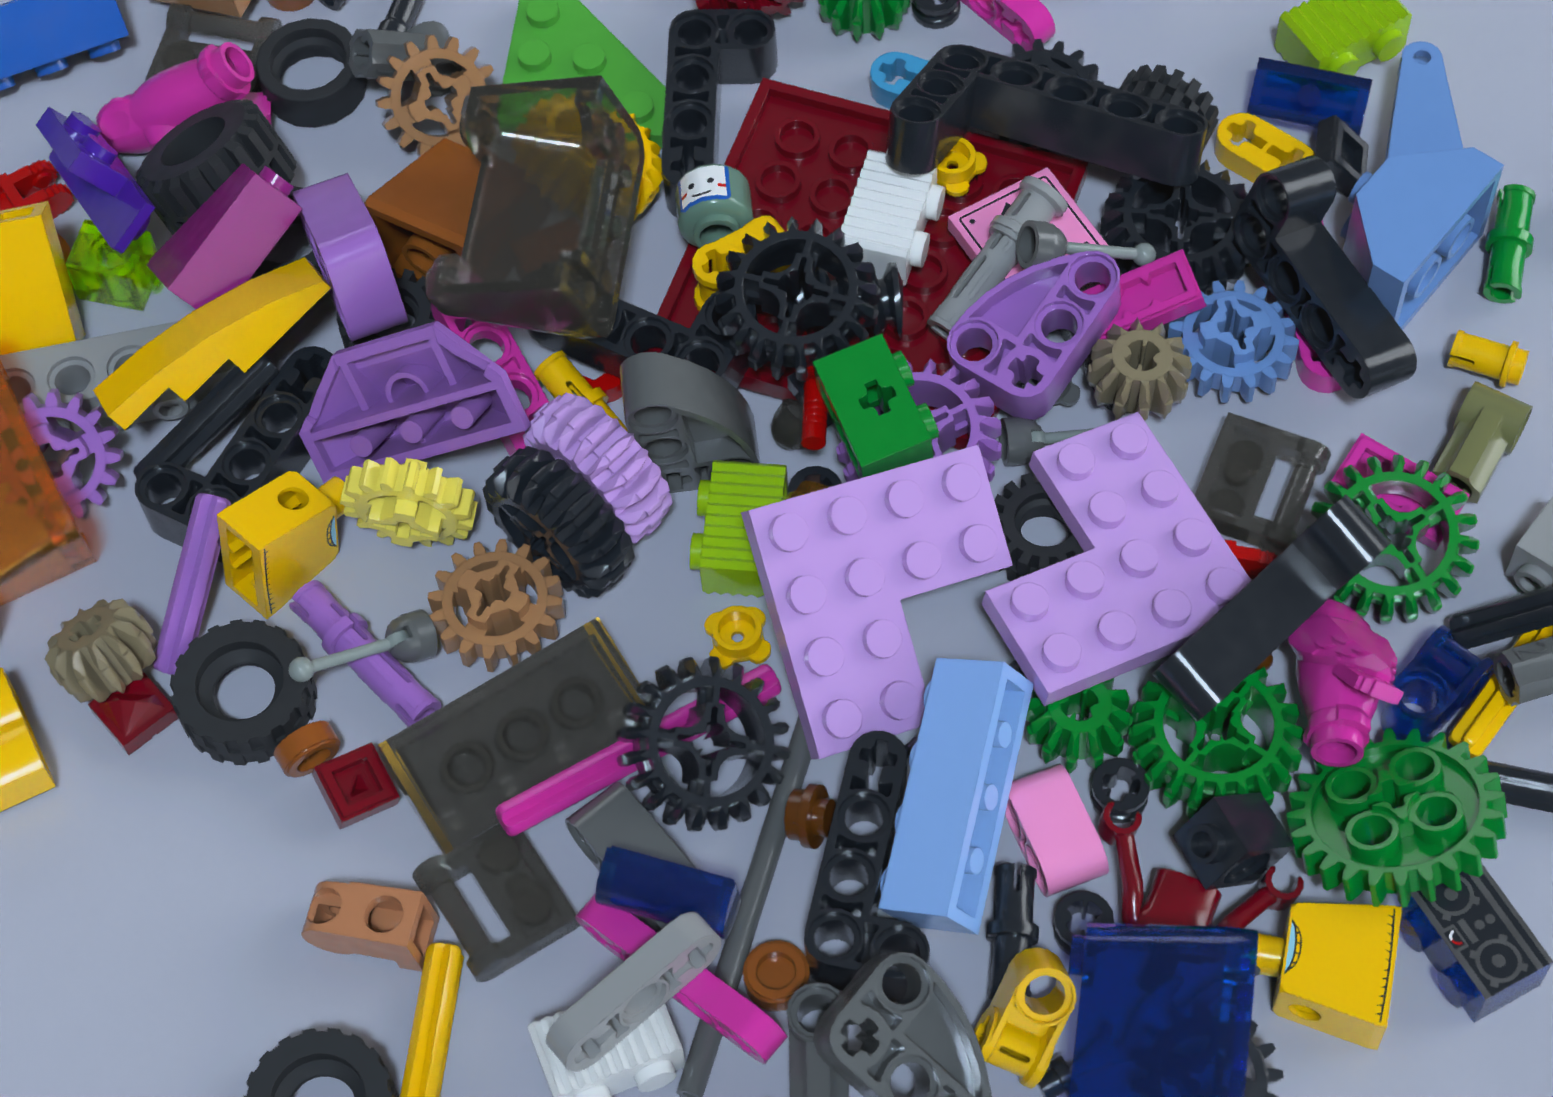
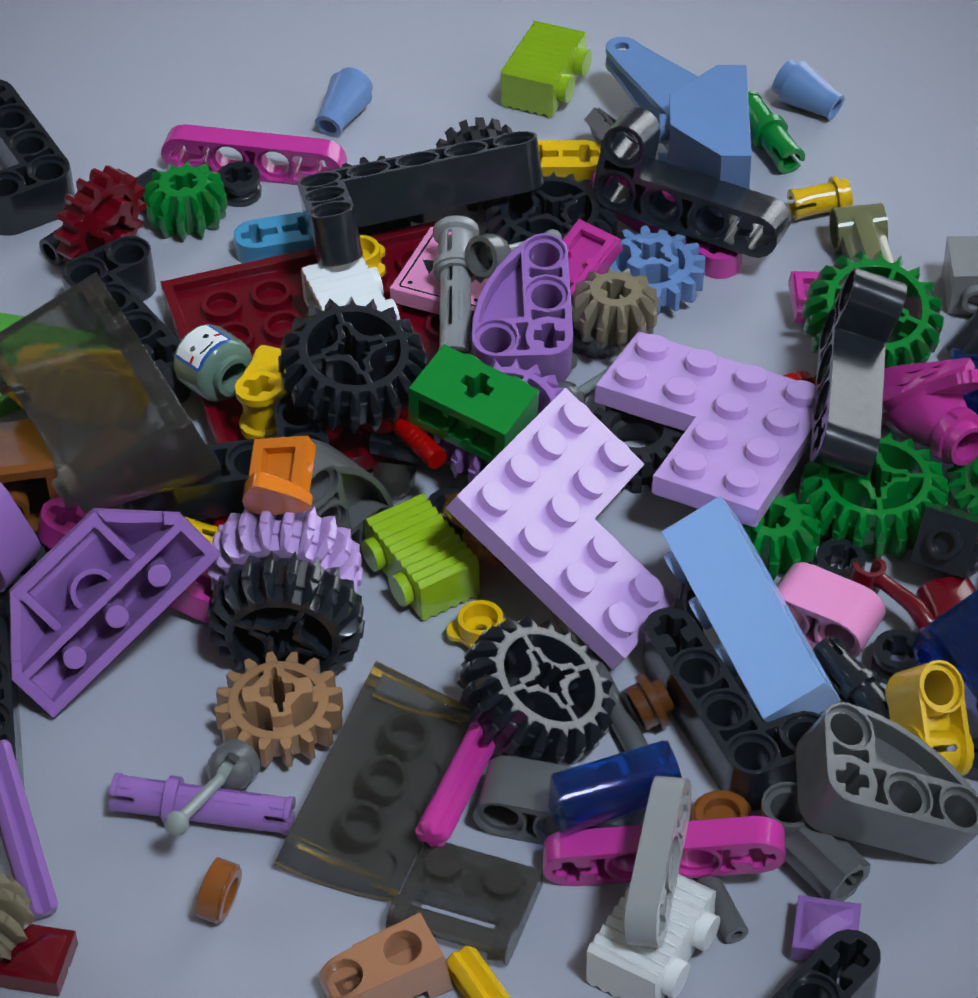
camera: 40 degrees left, 15 degrees down
(209, 660) = (132, 927): black tyre -> none
(279, 539) = (61, 736): yellow torso -> none
(355, 785) = (280, 893): dark red tile -> none
(409, 502) = (153, 670): light yellow gear -> none
(612, 389) = (280, 475): none -> orange tile
(1240, 474) = (728, 333): clear smoke plate -> none
(1307, 95) = (558, 111): clear blue brick -> none

